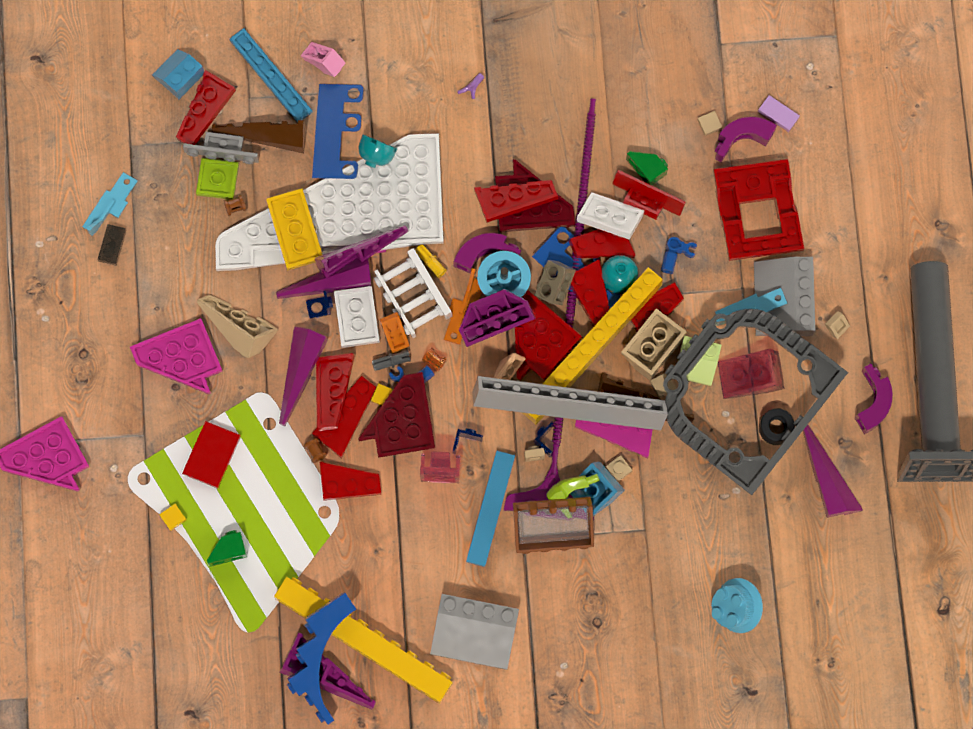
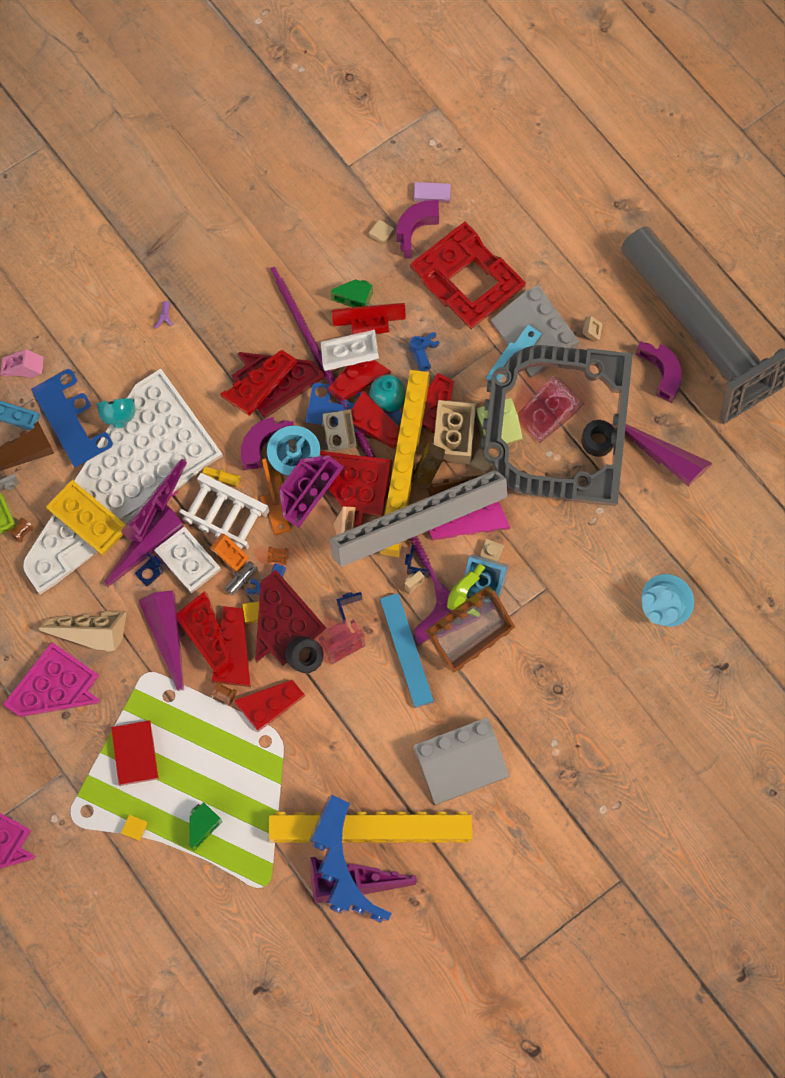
camera: 30 degrees left, 5 degrees down
(401, 448) = (294, 648): none -> black tyre
(609, 361) = (428, 466): none -> dark brown brick

